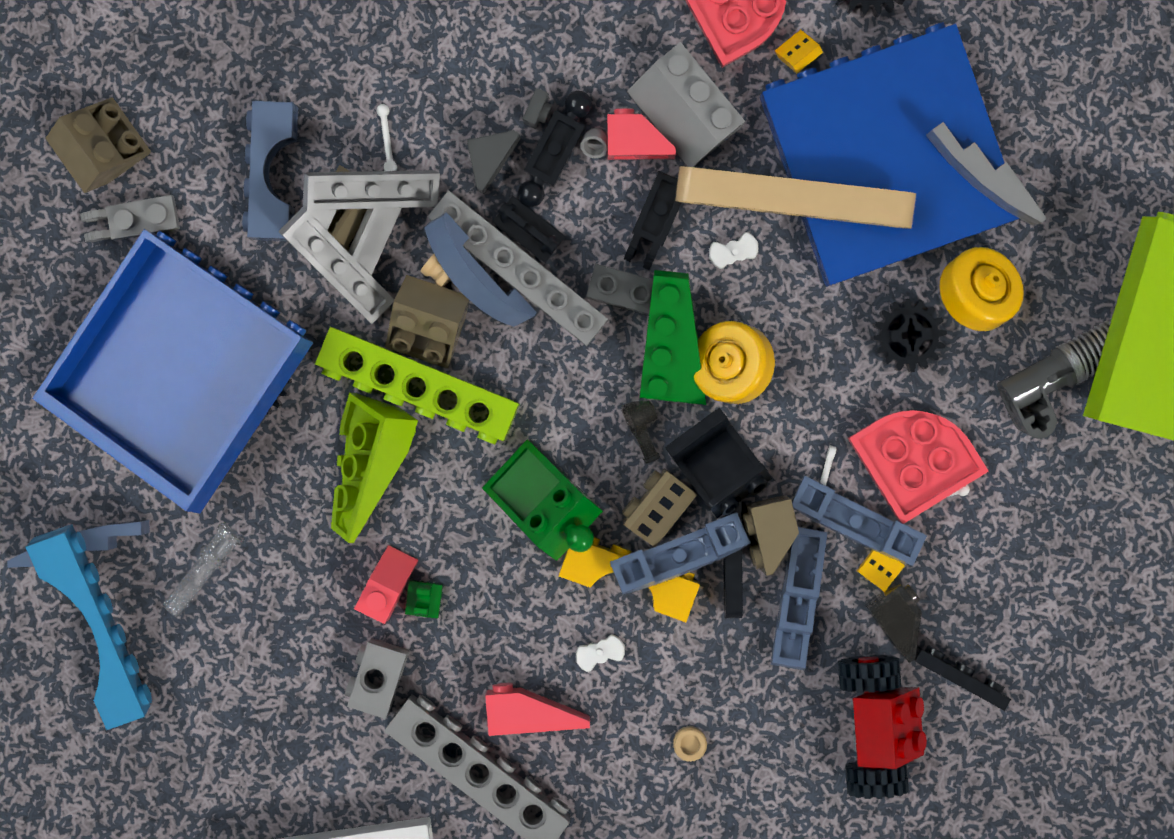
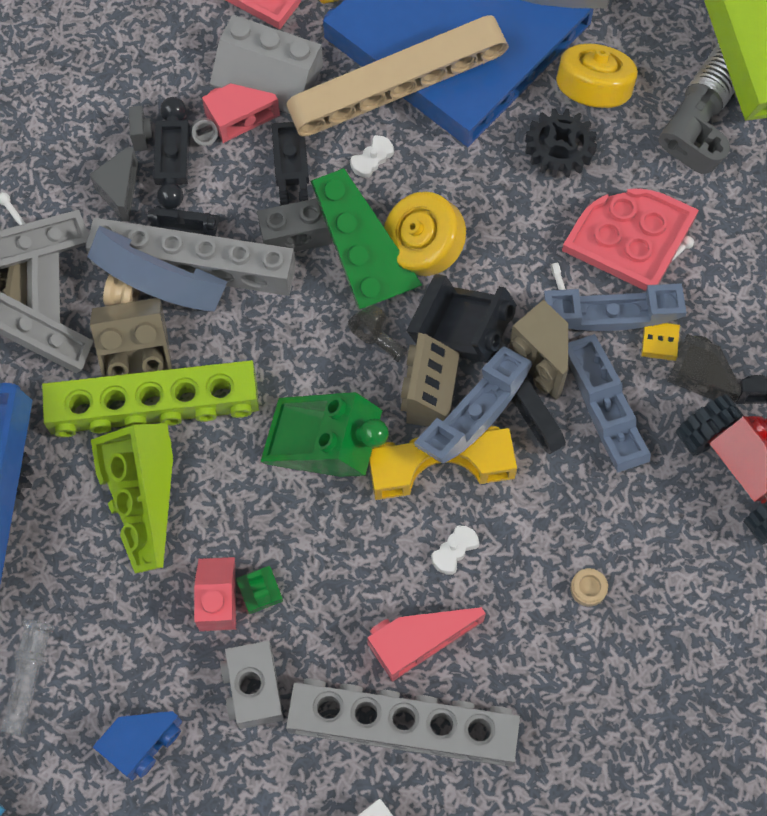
camera: 25 degrees left, 20 degrees down
(263, 670) = (136, 739): none -> blue slope

